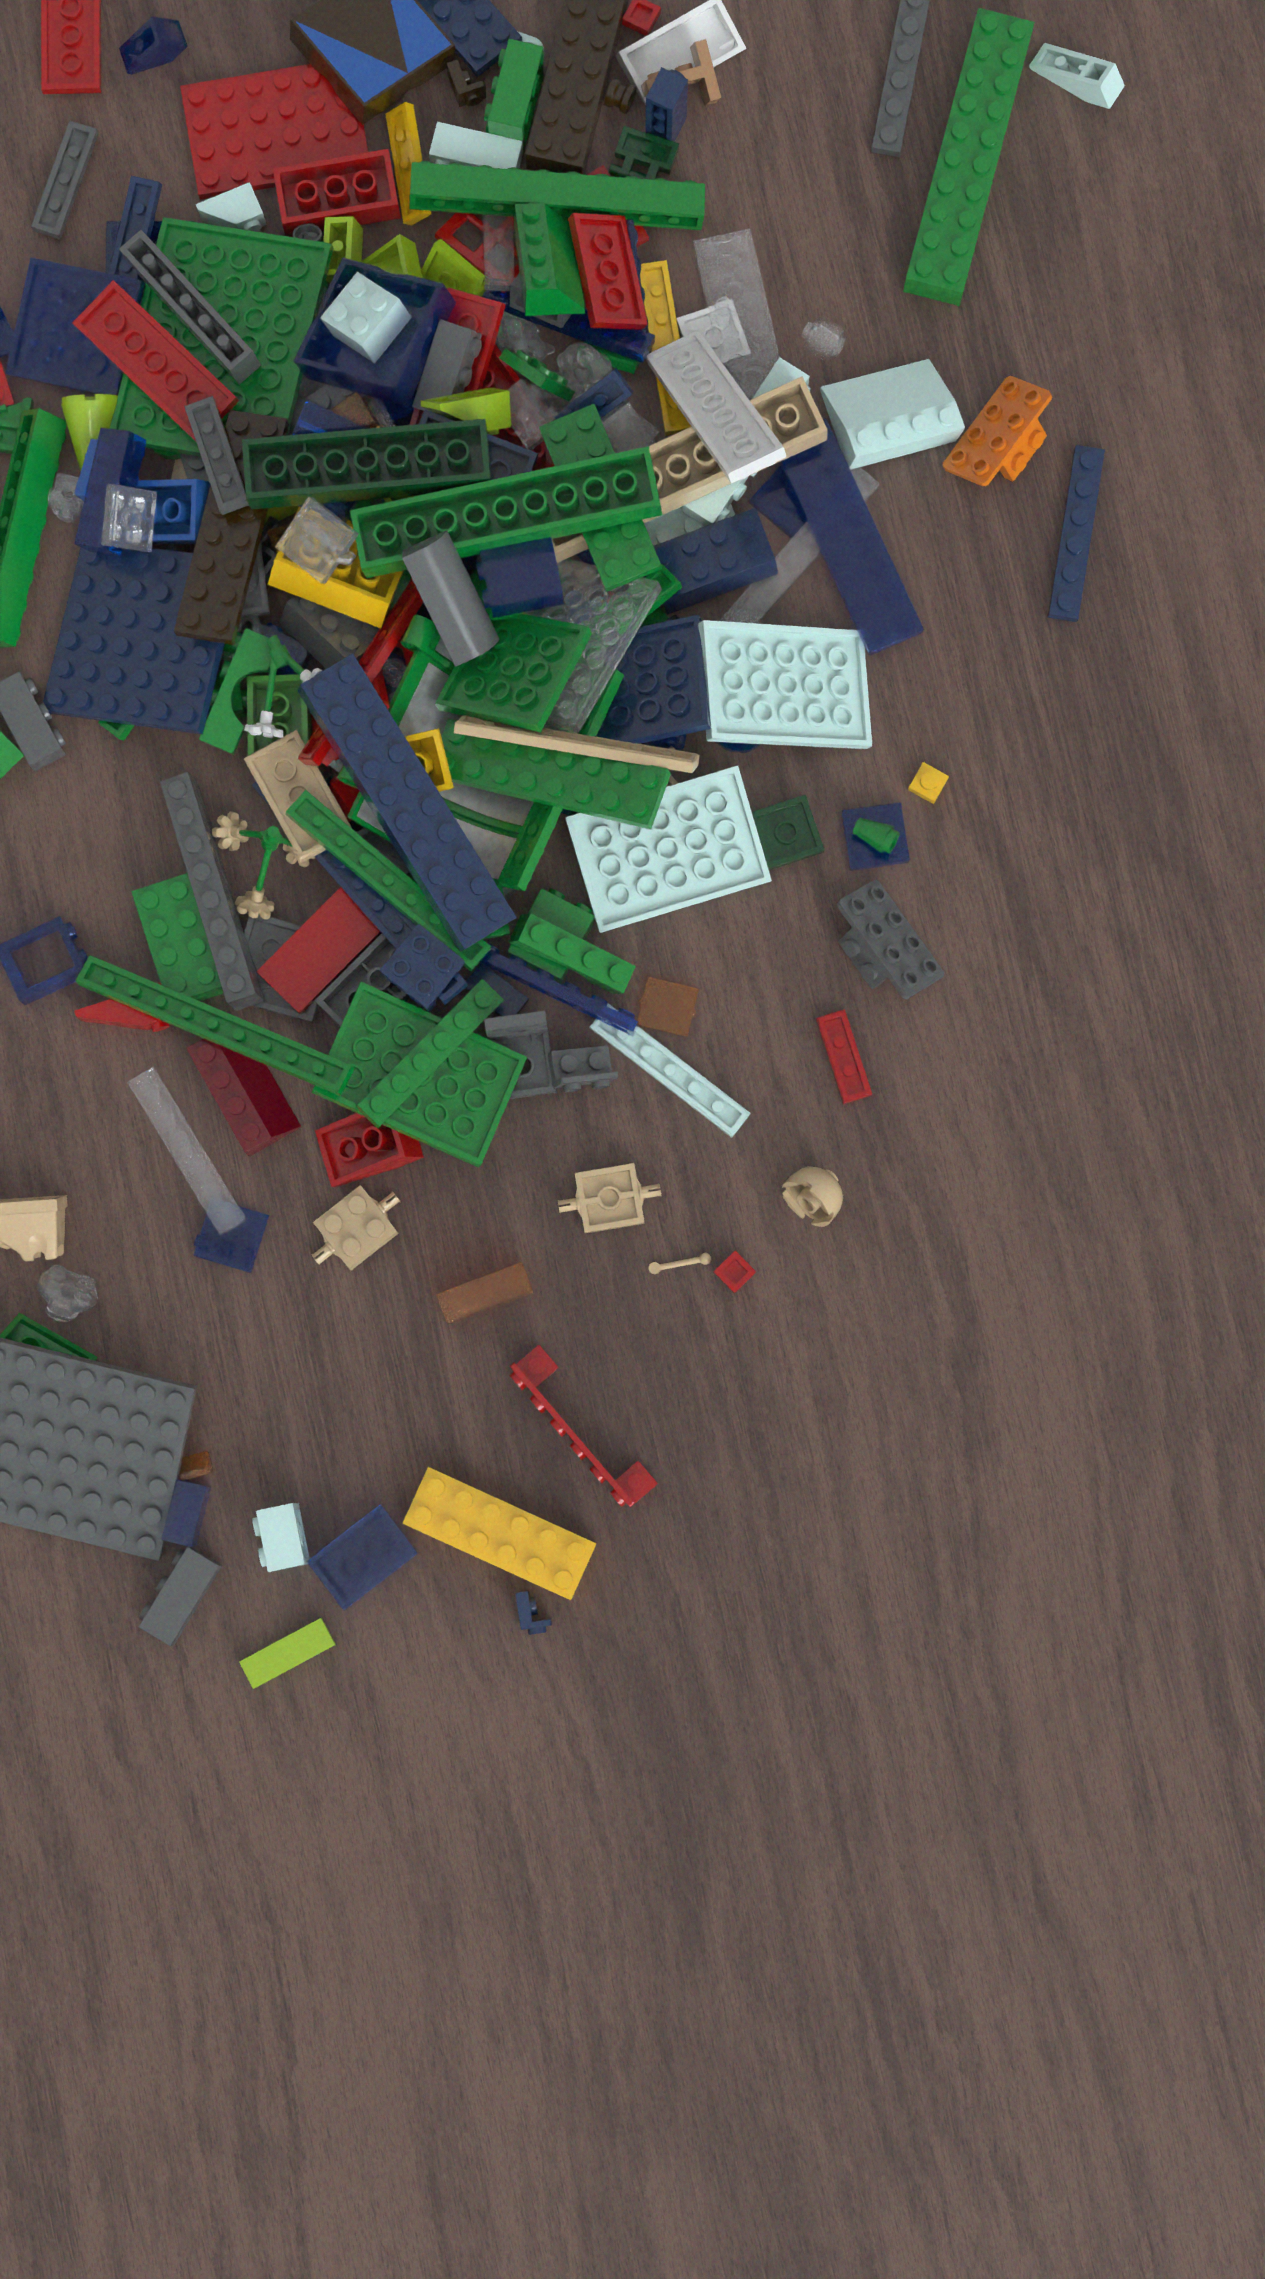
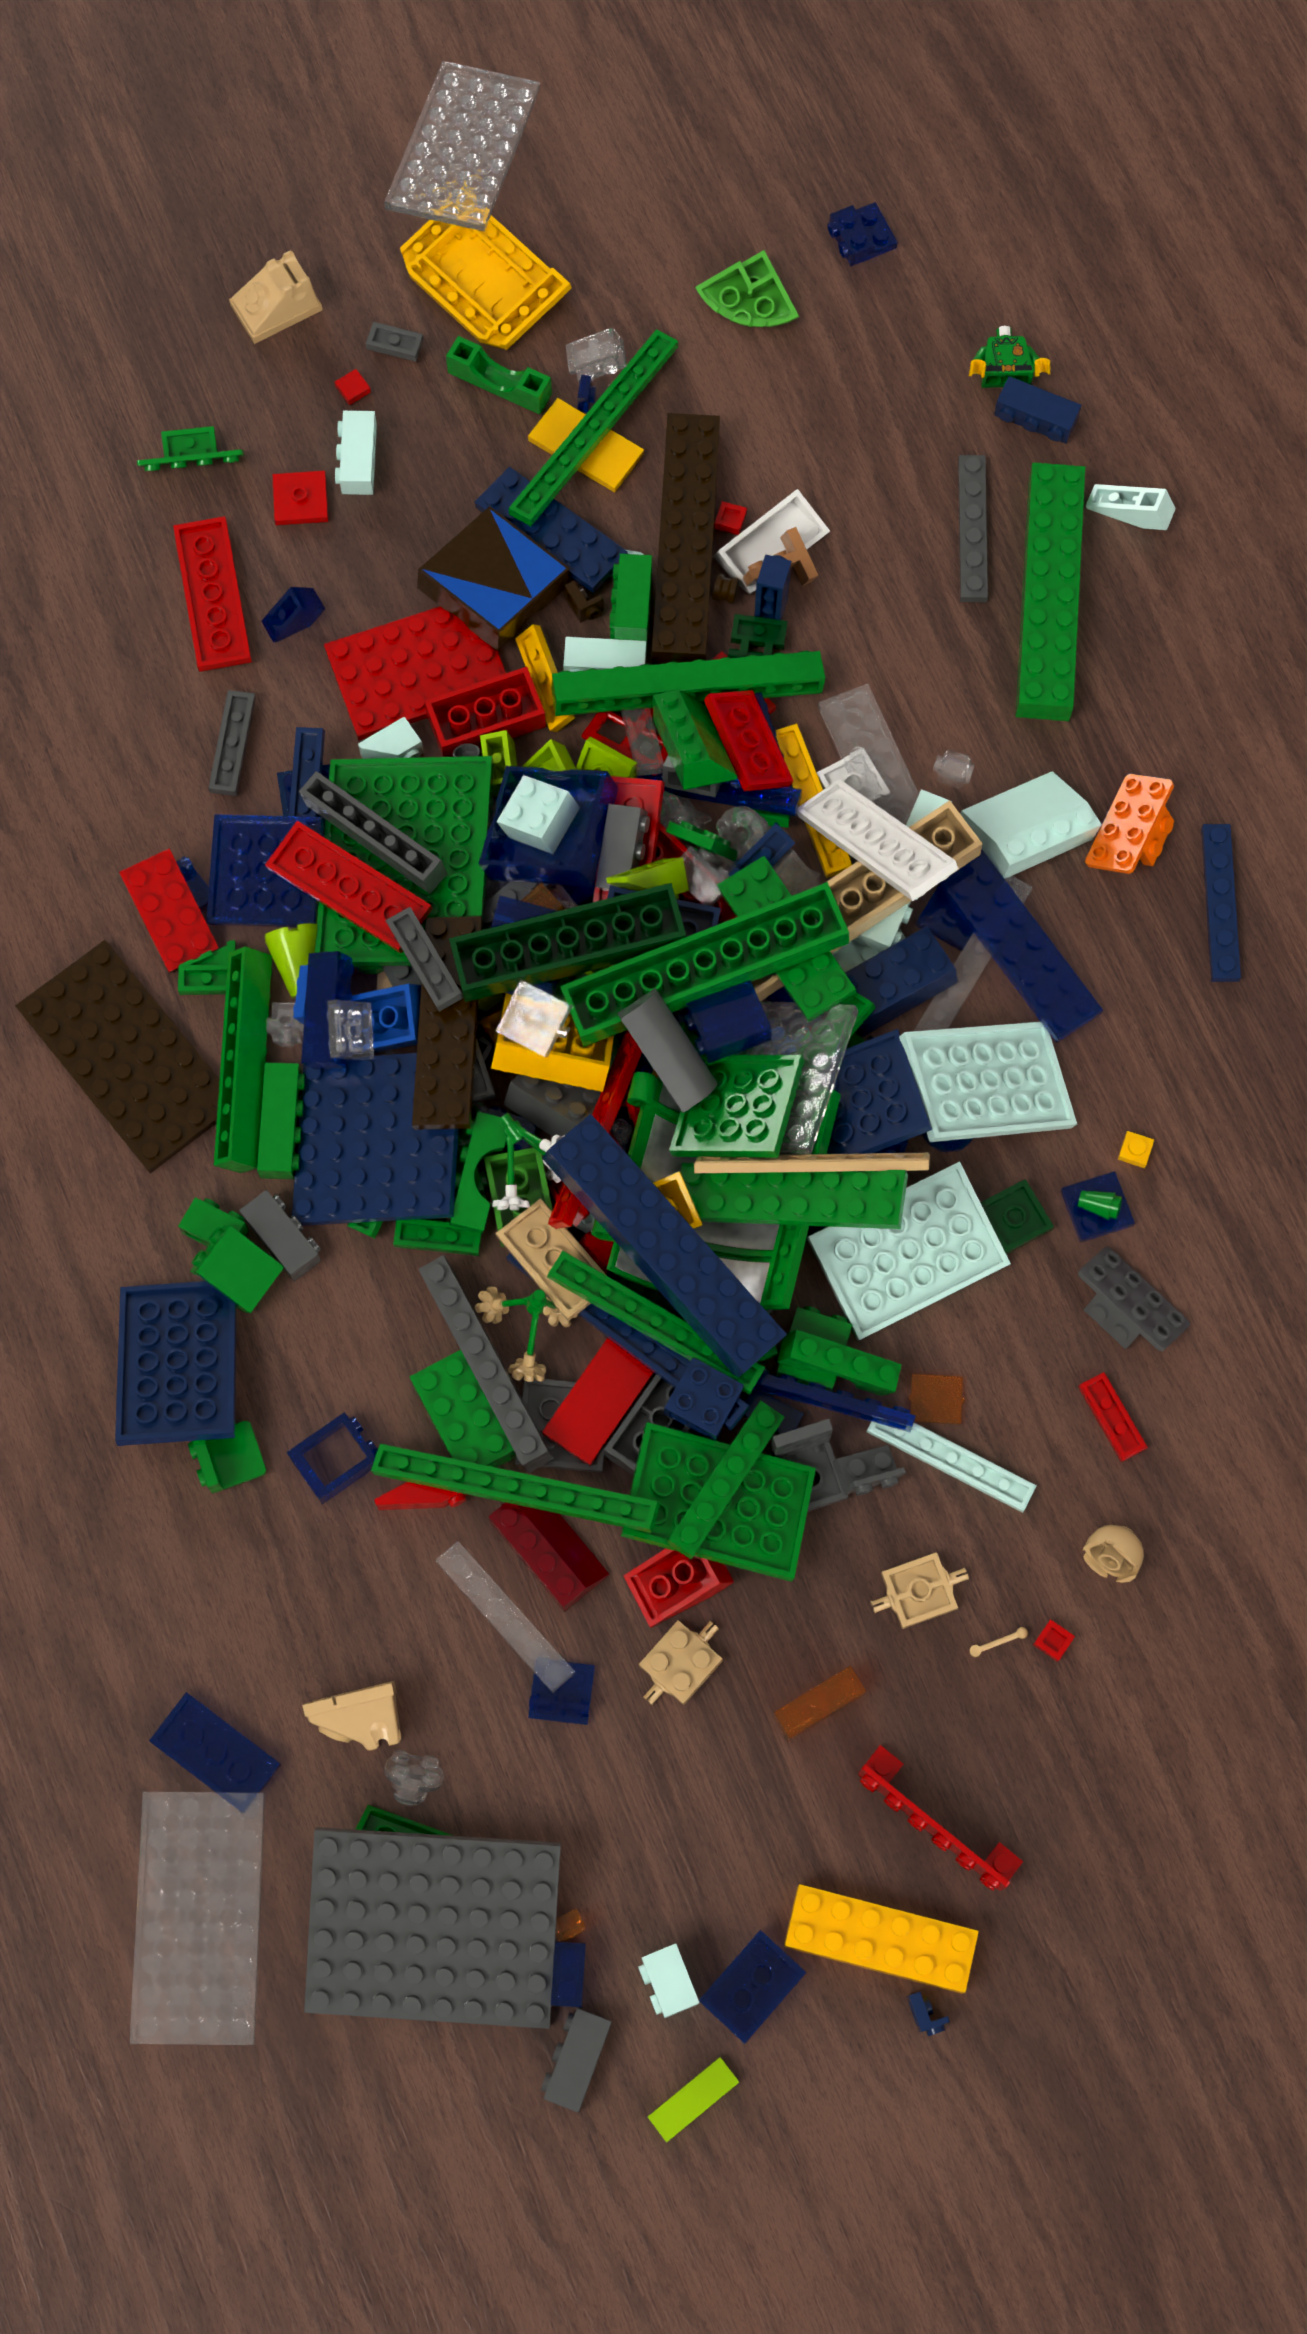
camera: 10 degrees left, 10 degrees down
(46, 600) = (280, 1121): none -> green brick
(186, 750) = (436, 1237): none -> green plate

